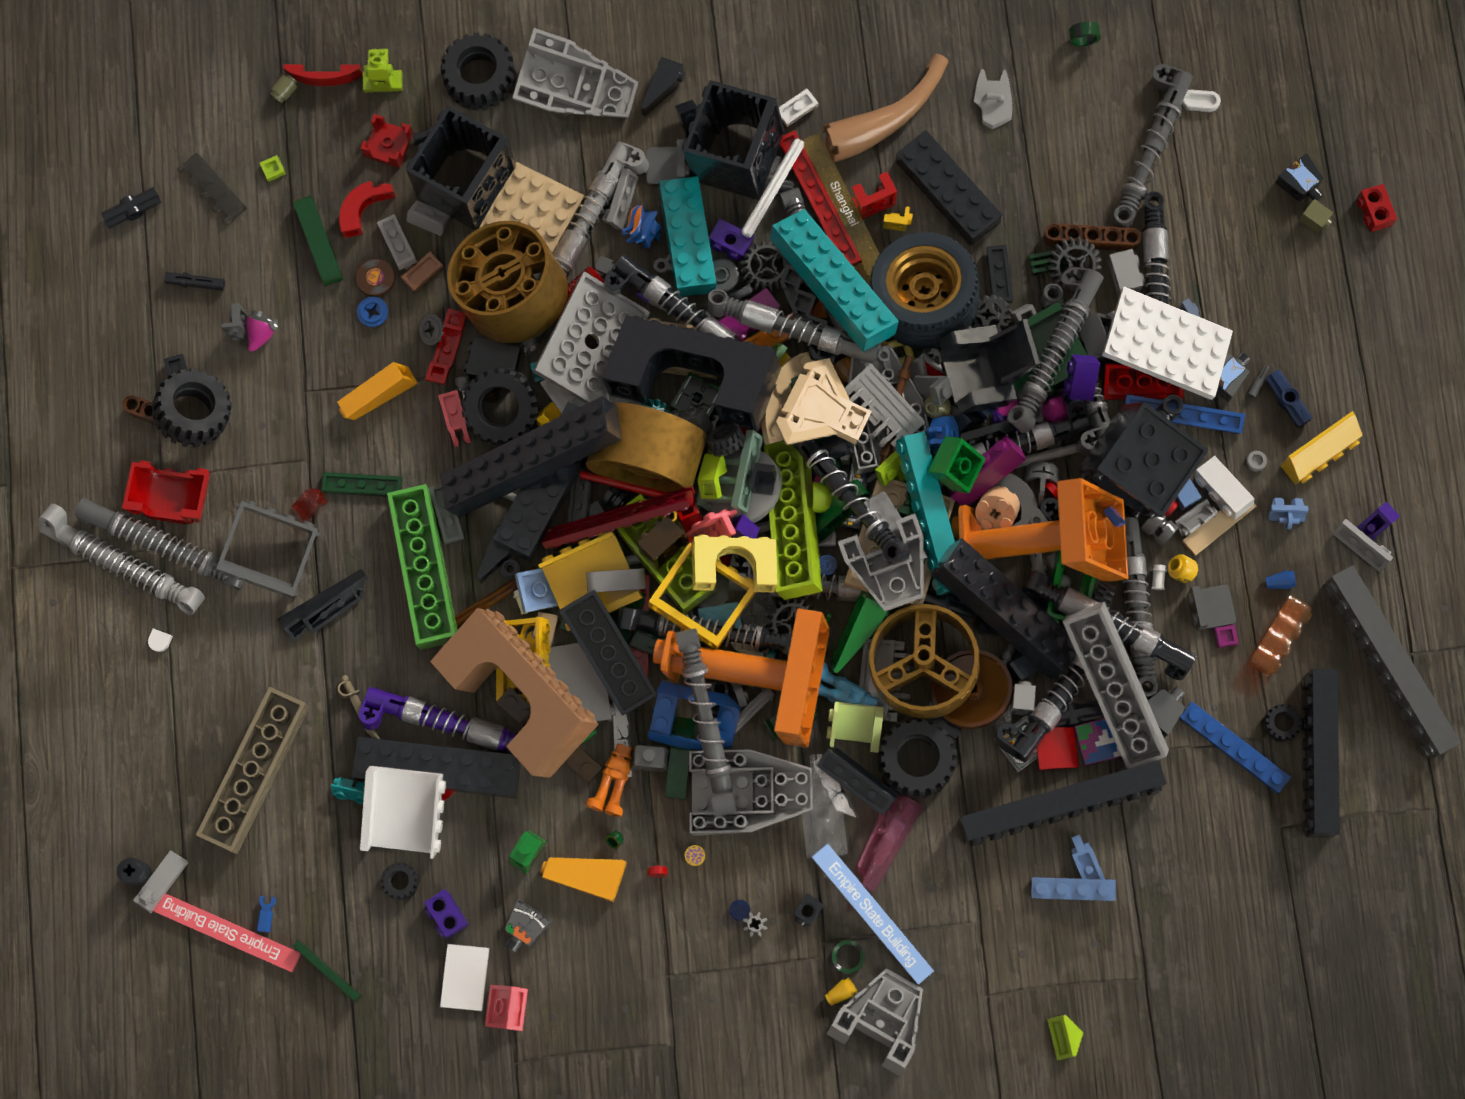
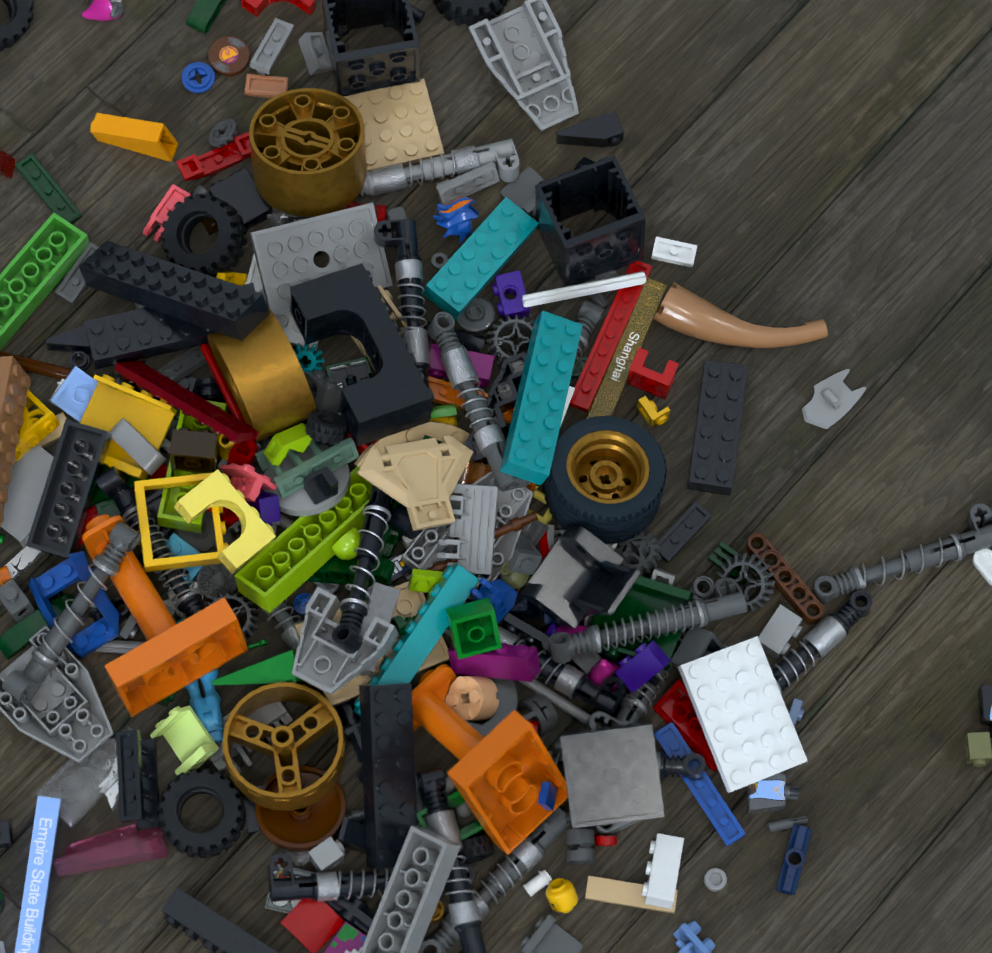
camera: 40 degrees right, 5 degrees down
(1084, 34) = (955, 423): dark green piece -> none
(1188, 496) = (630, 842): medium blue brick -> none
(1192, 519) = (617, 868): light grey hinge -> none
(1322, 449) = (774, 924): yellow slope -> none

